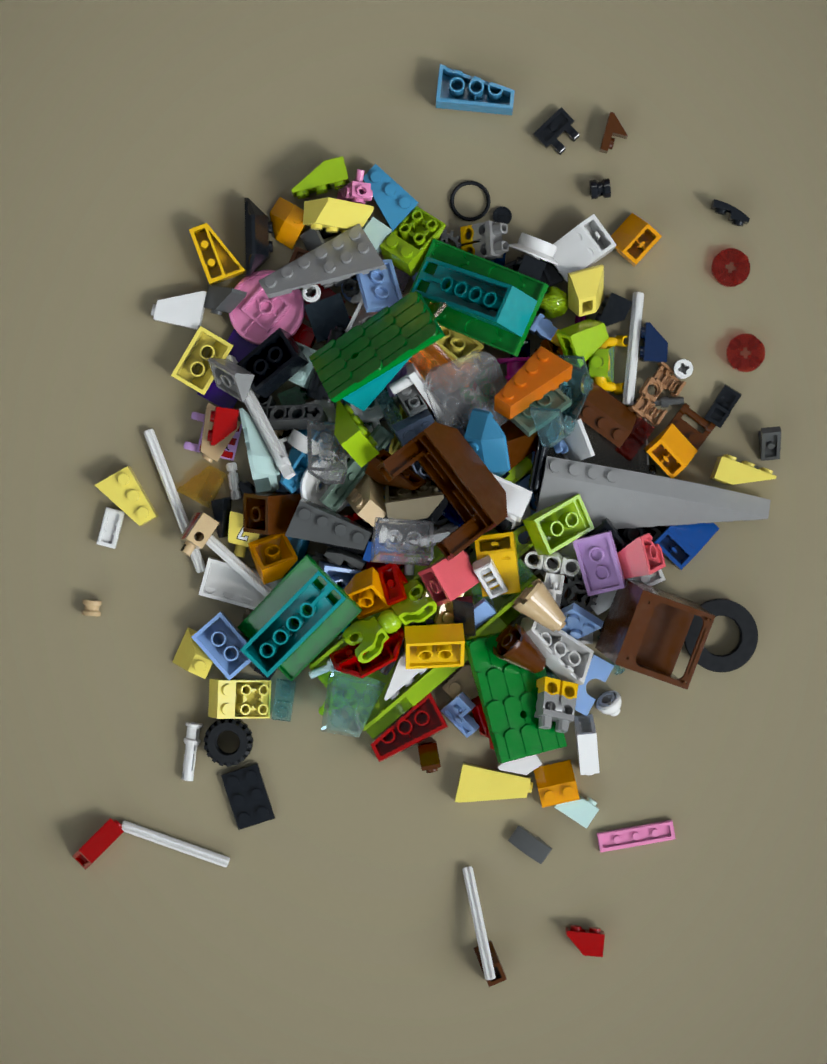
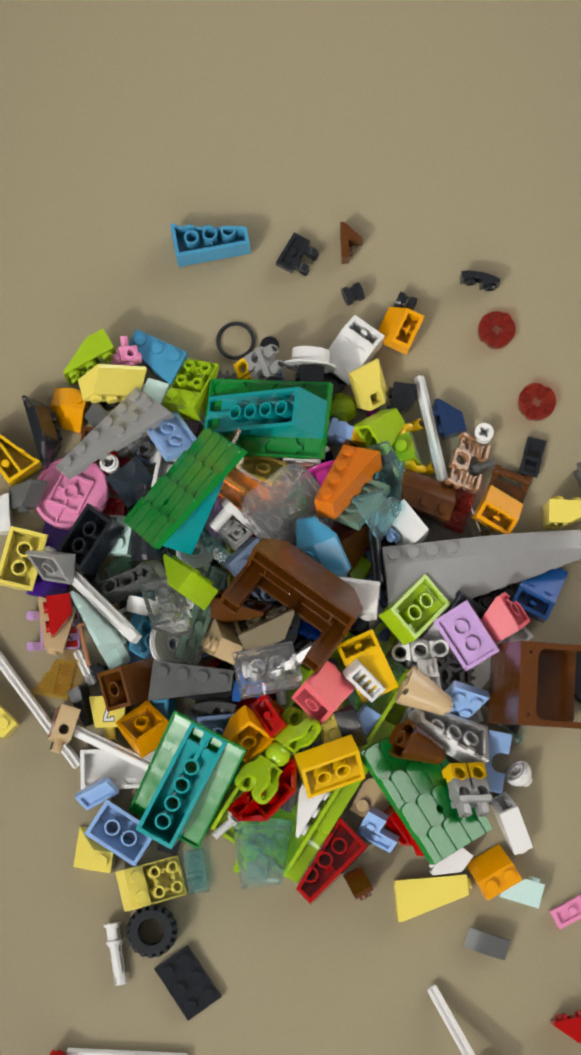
camera: 15 degrees left, 10 degrees down
(212, 602) = (97, 793): none -> light blue tile
(238, 460) = (84, 645): none -> nougat piece
(646, 210) = (402, 300): none -> black wheel

